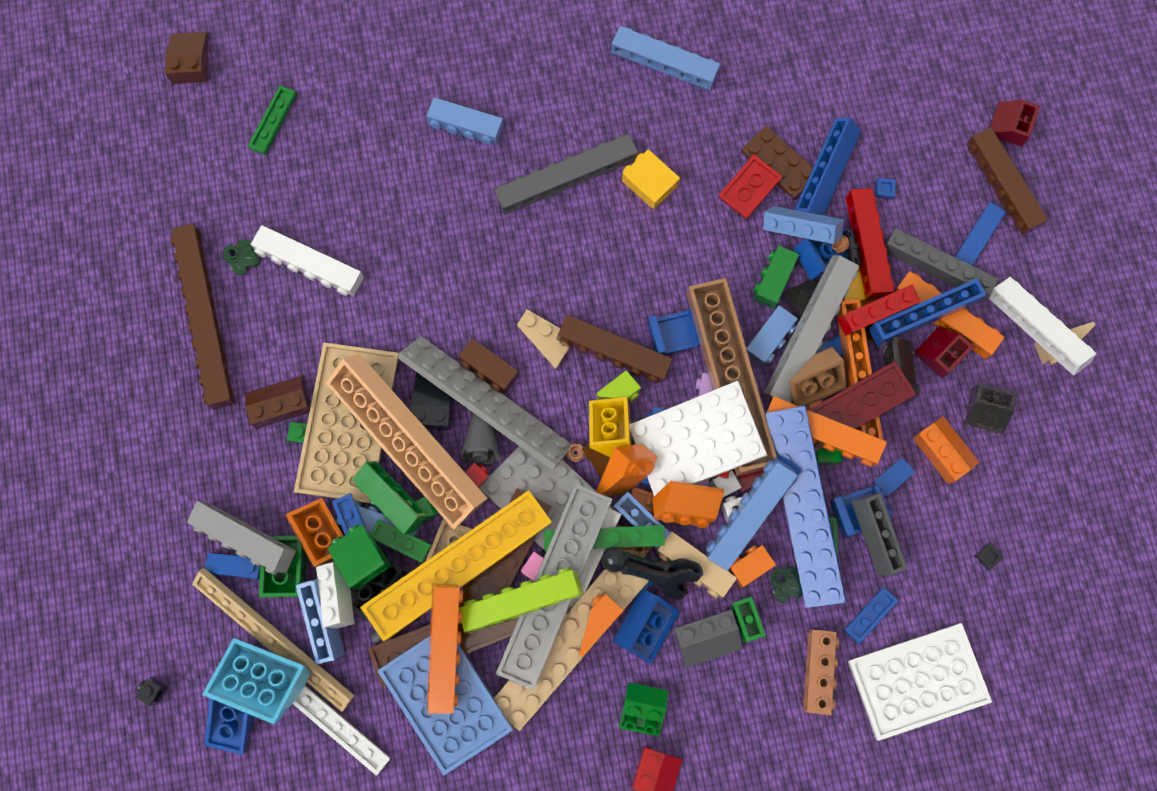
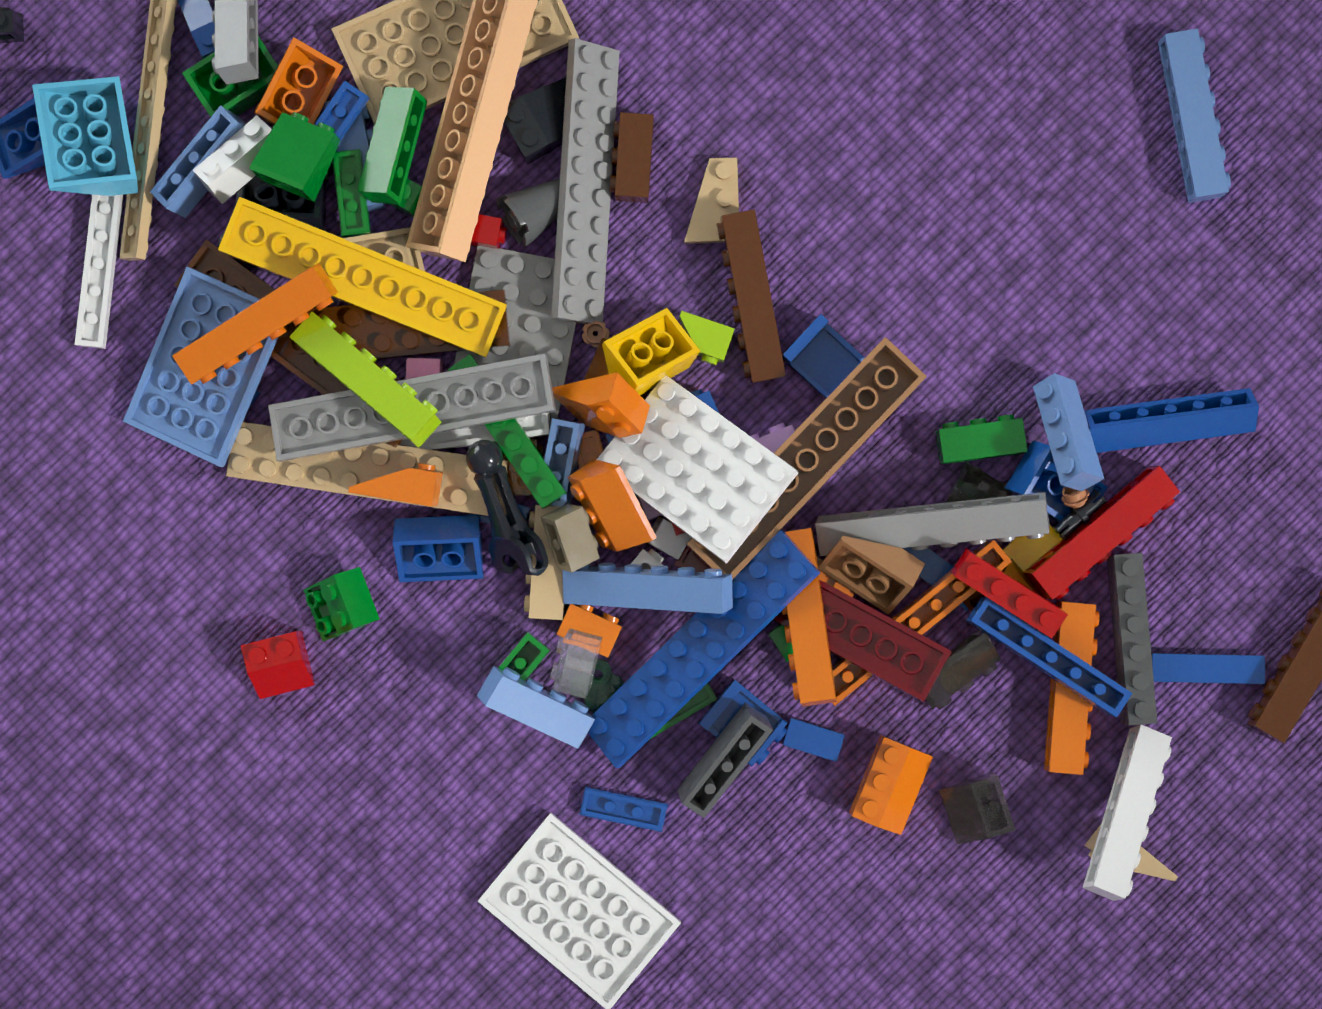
camera: 60 degrees right, 10 degrees up
(566, 174) = (947, 91): dark grey brick -> none
(650, 179) = (1010, 202): yellow brick -> none
(692, 540) = (570, 537): none -> dark tan brick
(708, 638) = (470, 629): dark grey slope -> none
(750, 187) = (1082, 335): red plate -> none
(769, 584) = (576, 663): none -> clear brick
(771, 336) = (897, 482): medium blue brick -> none
(782, 159) = (1144, 350): reddish brown plate -> none
(782, 626) = (535, 706): none -> brick
(820, 672) = (515, 786): nougat brick -> none
(885, 188) = (1196, 510): blue tile -> none
(943, 350) = (1017, 708): dark red slope -> none
(989, 556) = (787, 912): black tile -> none

